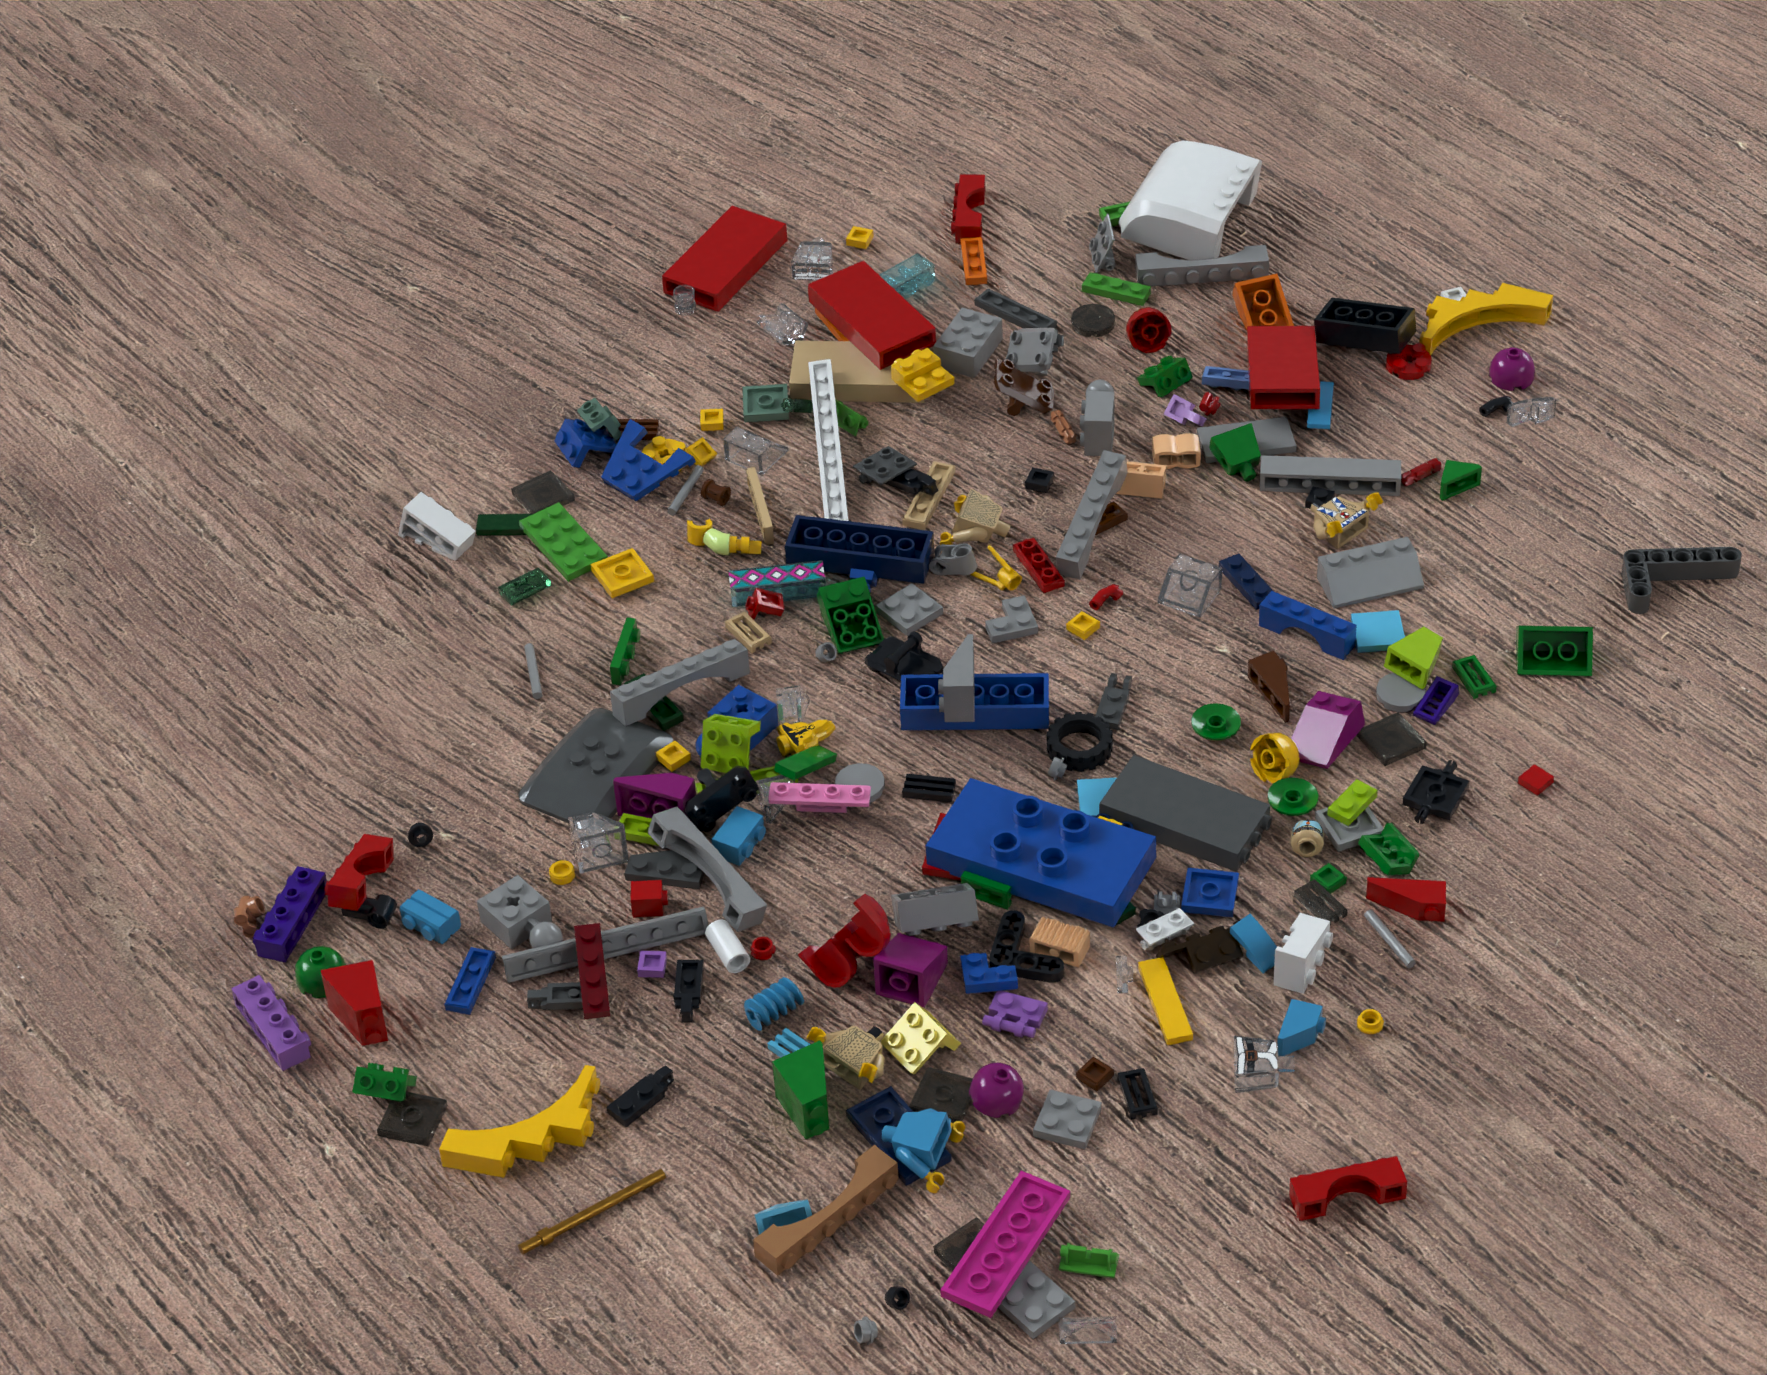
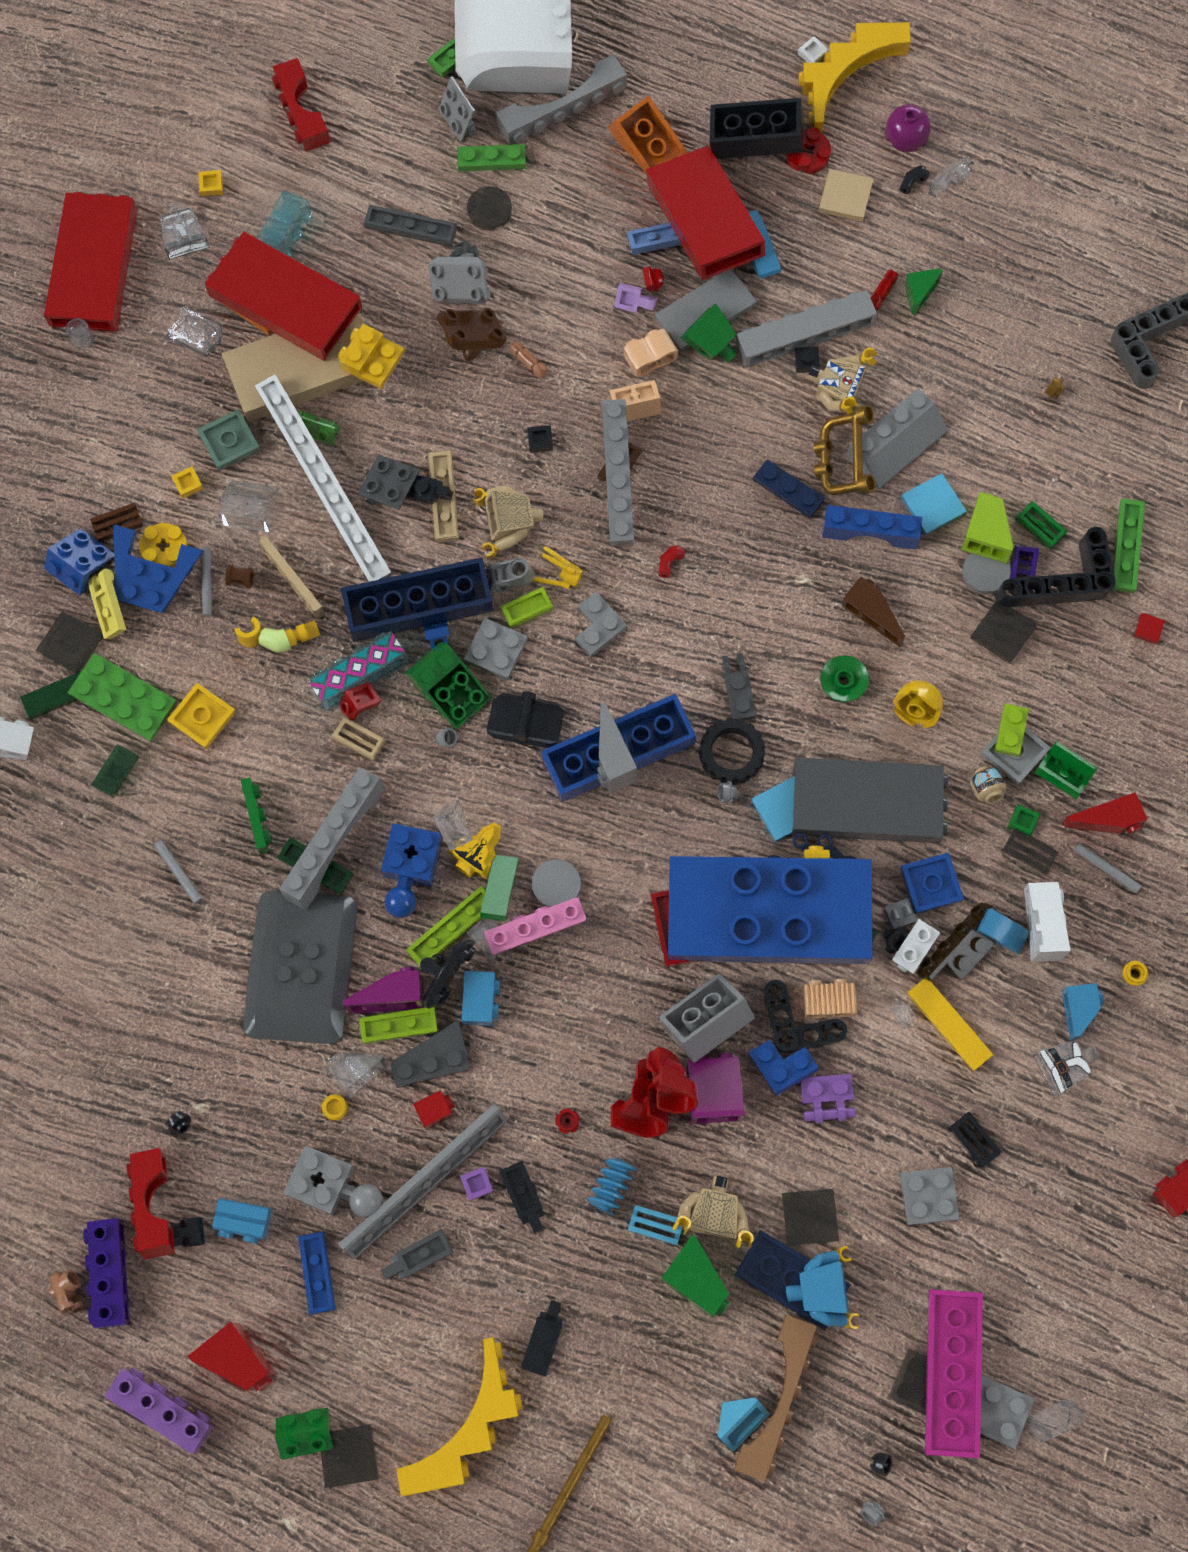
camera: 25 degrees left, 30 degrees up
(309, 968) = (173, 1328): green cylinder -> none
(590, 476) = (106, 604): none -> light yellow plate
(592, 971) = (432, 1226): dark red plate -> none
(597, 416) = (79, 532): sand green bracket -> none
(673, 756) = (368, 925): yellow plate -> none
(676, 832) = (428, 1031): light grey arch -> none
(701, 452) = (198, 529): yellow tile -> none
(726, 742) = (419, 898): lime bracket -> none
(727, 946) = (535, 1134): white pin -> none
(797, 405) = (264, 435): clear green axle -> none
(917, 1038) = (760, 1165): light yellow bracket -> none
(930, 788) = (618, 853): black tile -> none
(955, 590) = (526, 607): none -> lime tile
(968, 342) = (387, 287): light grey brick -> none
(973, 261) = (338, 173): orange plate -> none
(988, 890) = (735, 967): green tile -> none
(997, 1090) = (857, 1196): magenta cylinder -> none
(1038, 565) = (598, 553): red tile -> none
(1083, 625) = (665, 604): yellow tile -> none
(1090, 1262) = (1023, 1347): bright green hinge -> none
(1095, 1074) = (928, 1133): reddish brown tile -> none
(1098, 419) = (562, 341): light grey brick -> none
(1148, 330) = (552, 206): red cylinder -> none
(1166, 375) = (593, 256): green bracket -> none
(1190, 585) = (743, 520): clear slope -> none
(1293, 796) = (957, 730): green dish -> none
(1315, 581) = (862, 483): none -> pearl gold bar
(1327, 728) = (947, 651): slope -> none
(1426, 400) = (846, 195): none -> tan tile
(1436, 792) = (1073, 681): black plate -> none
(1464, 718) = (1065, 582): none -> black beam
(1544, 583) = (1055, 388): none -> pearl gold plate
(1549, 713) = (1128, 544): none -> bright green plate
(1554, 650) = (1100, 468): green slope -> none

